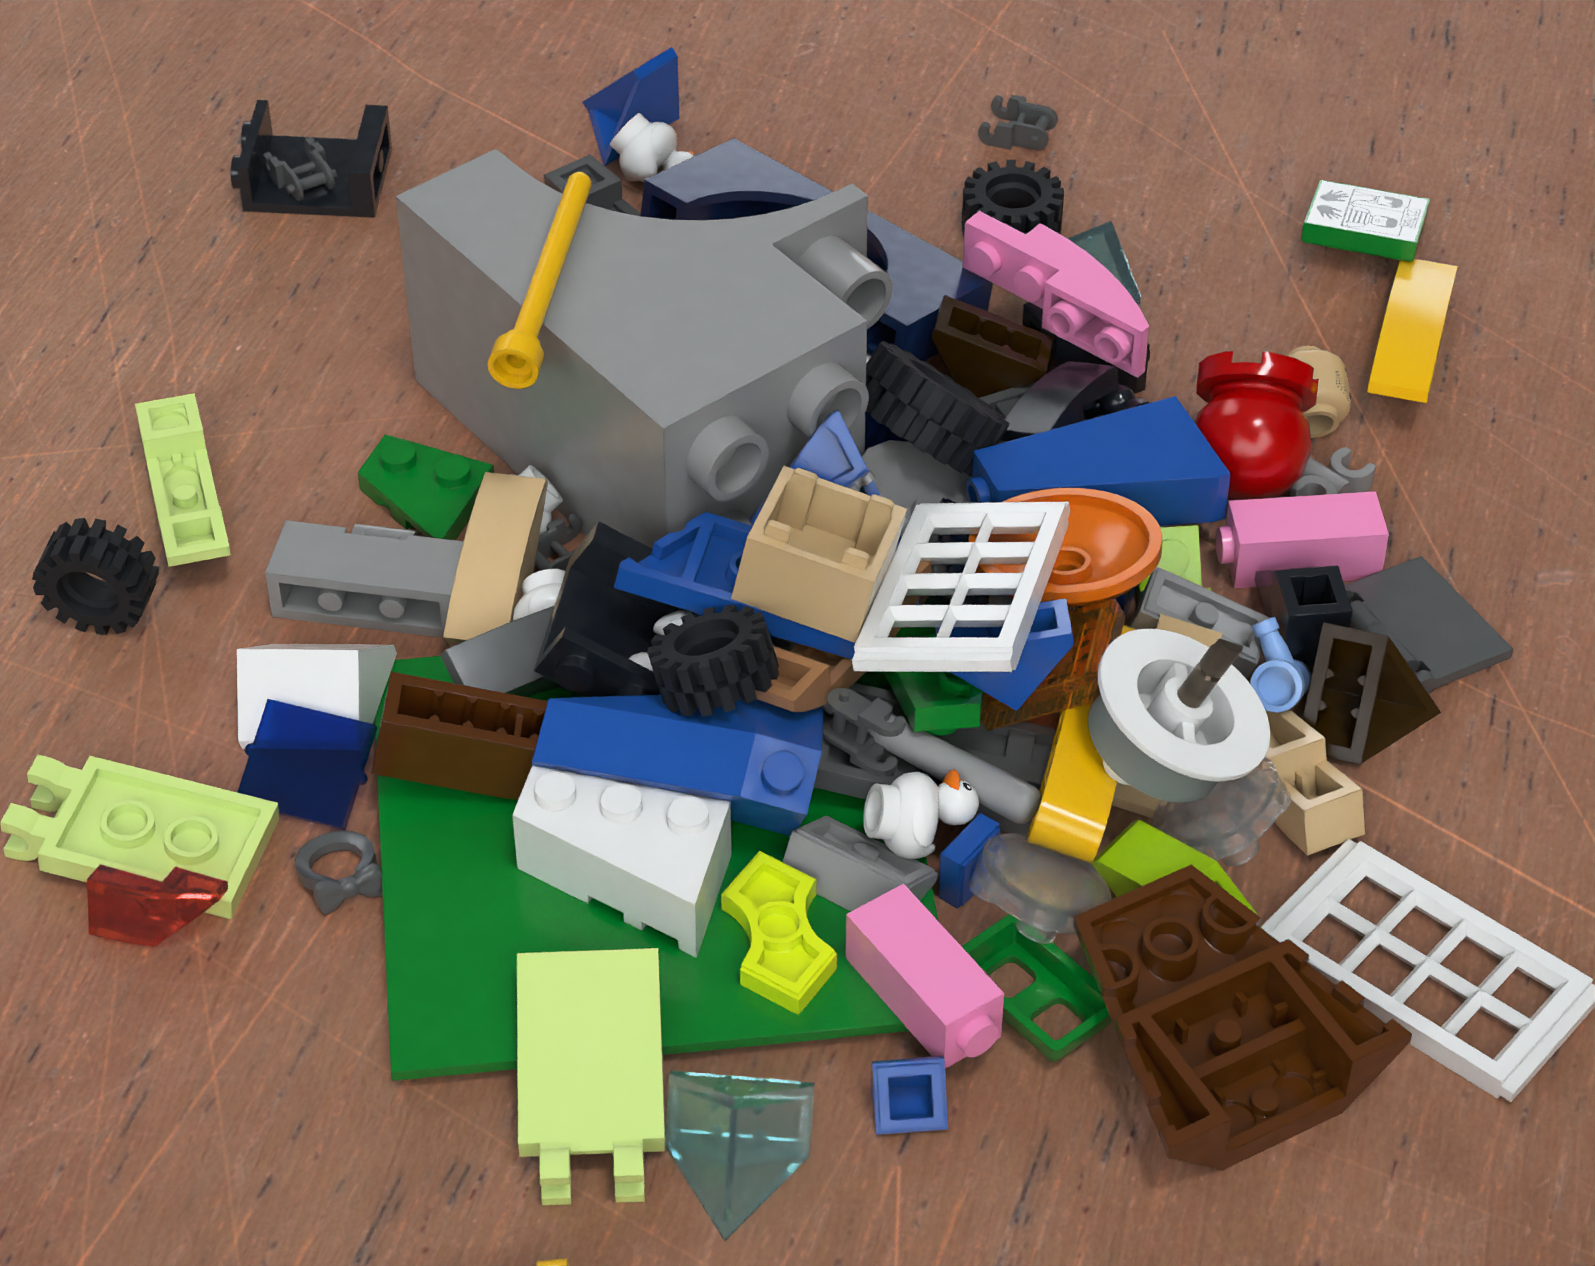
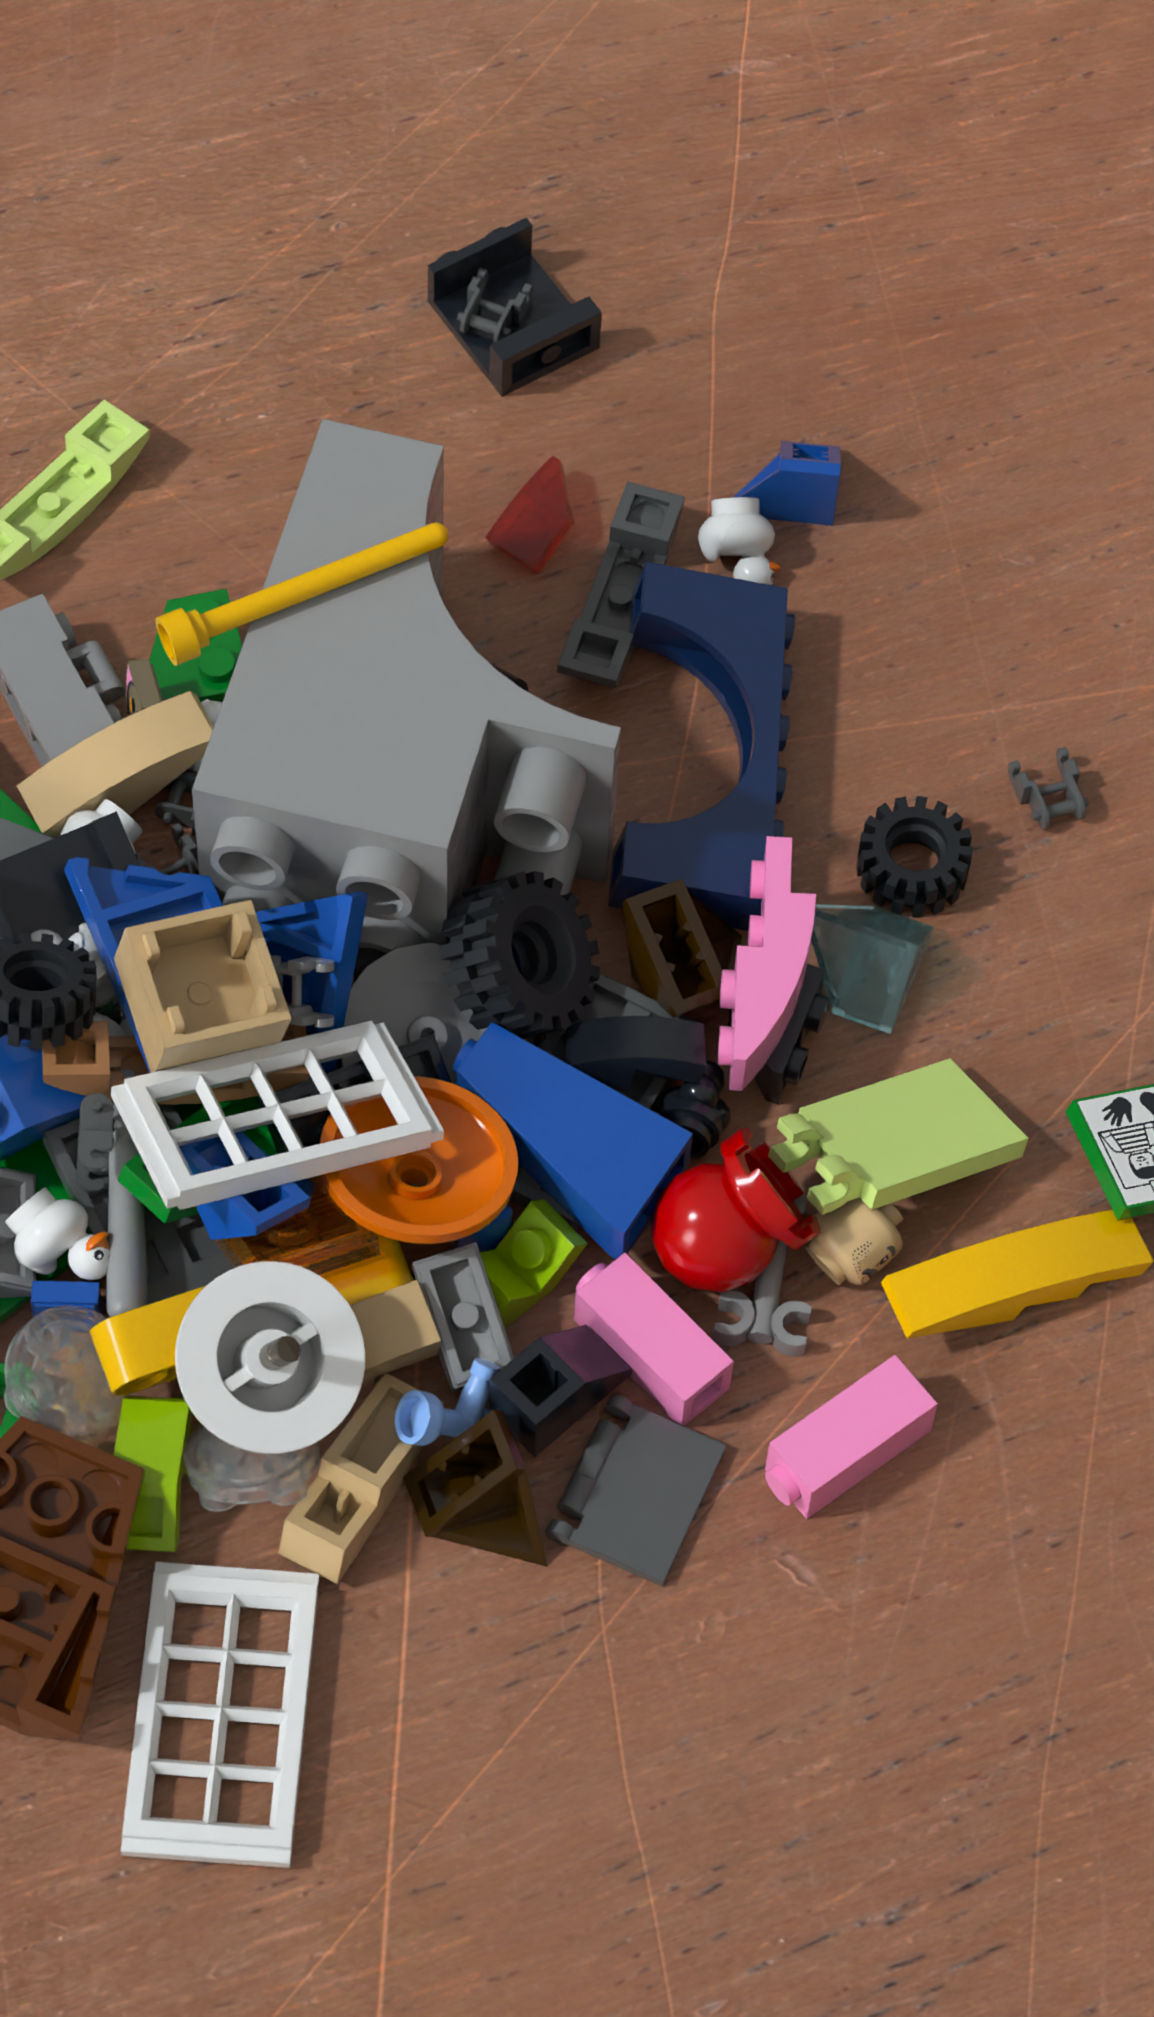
camera: 50 degrees right, 15 degrees up
(443, 513) = (141, 686): none -> dark tan tile
(1258, 312) = (898, 1137): none -> yellowish green tile
(1479, 479) = (849, 1437): none -> bright pink brick

